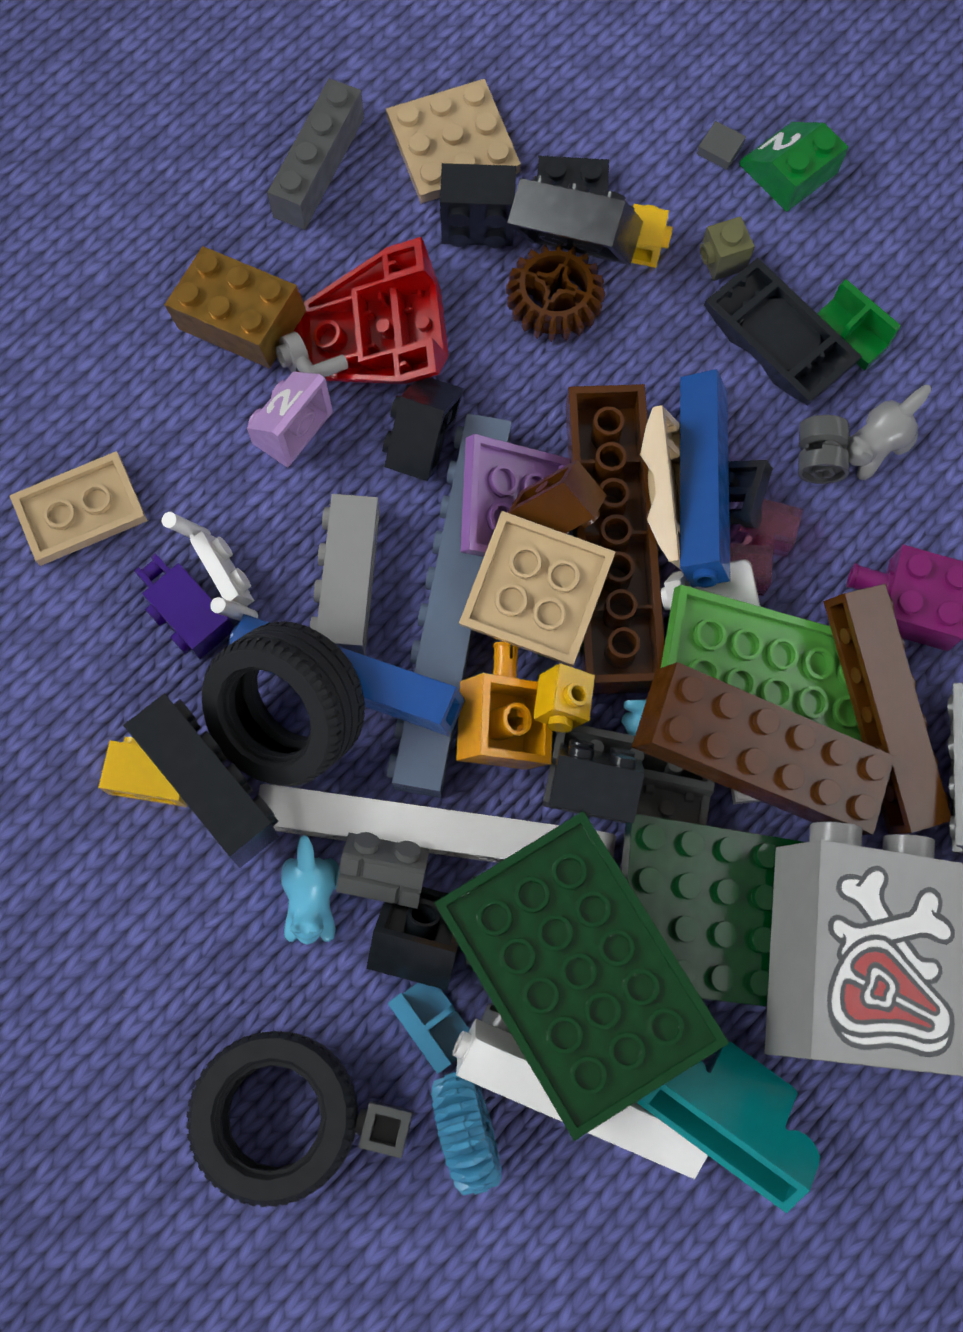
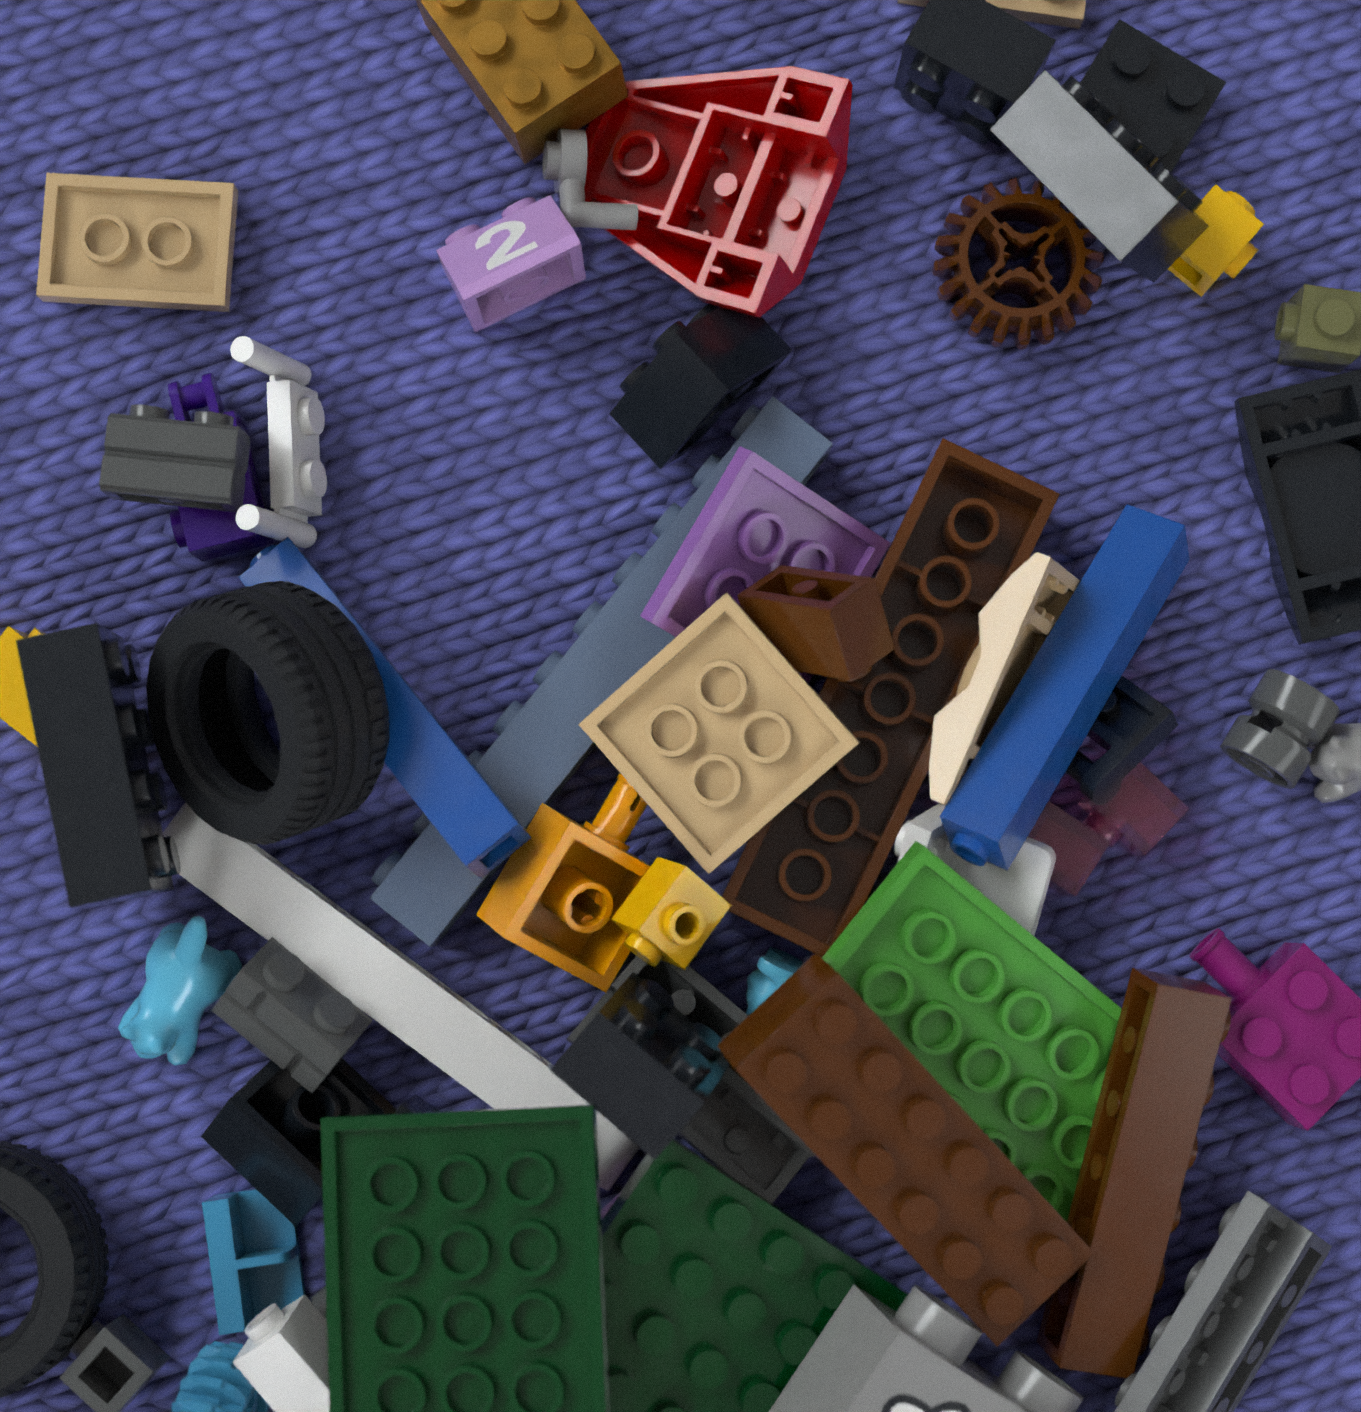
camera: 30 degrees right, 10 degrees up
(160, 600) = (175, 460): none -> dark grey brick
(347, 570) = (471, 548): light grey brick -> none

